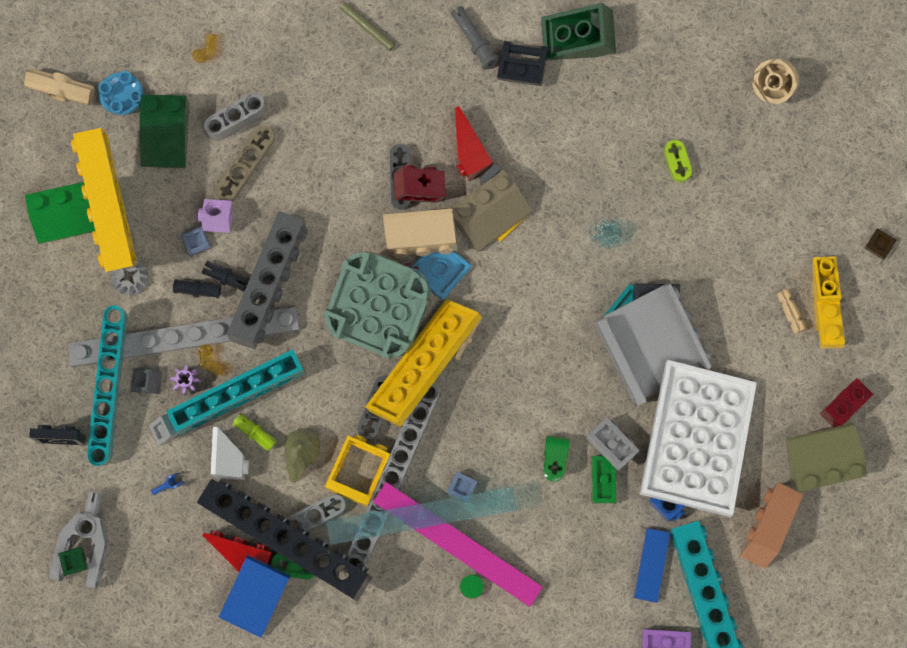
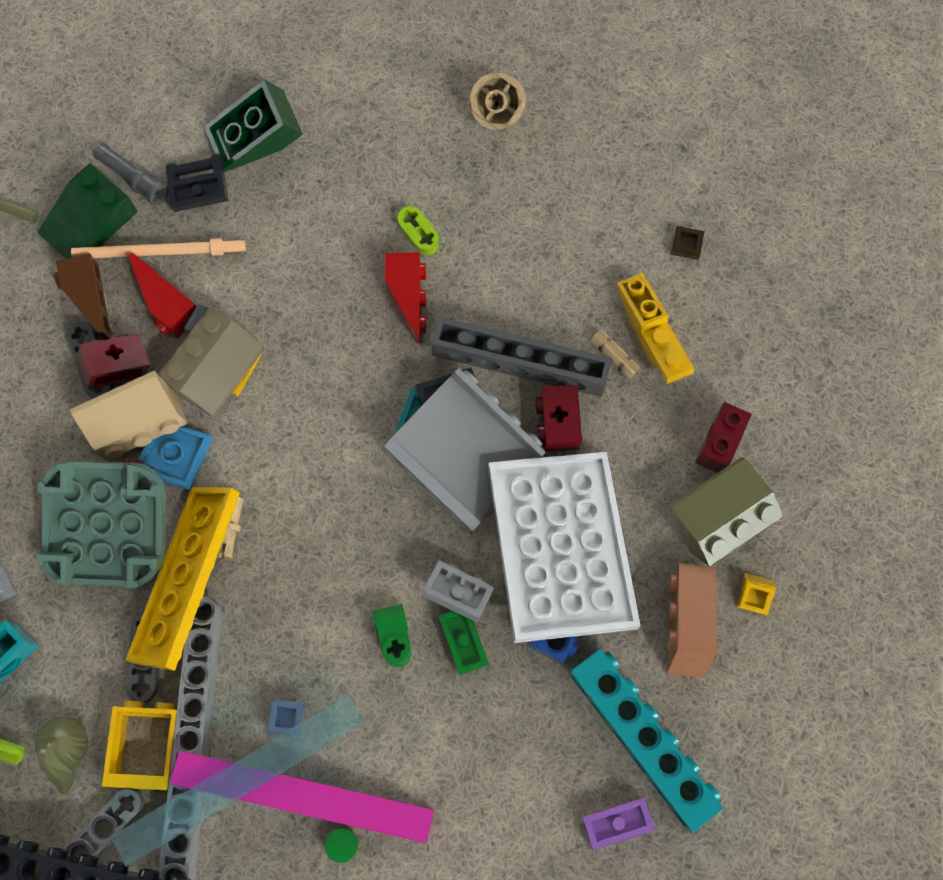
camera: 20 degrees left, 5 degrees down
(412, 118) = (83, 285): none -> reddish brown slope
(431, 61) = (86, 212): none -> dark green slope
(520, 119) = (215, 247): none -> light nougat bar
(607, 227) = (369, 345): clear light blue gear -> none
(651, 202) = (403, 284): none -> red slope
(651, 565) = (563, 728): blue tile -> none
(720, 289) = (520, 356): none -> dark grey brick
(740, 335) = (565, 402): none -> dark red brick
(826, 524) = (756, 594): none -> yellow slope

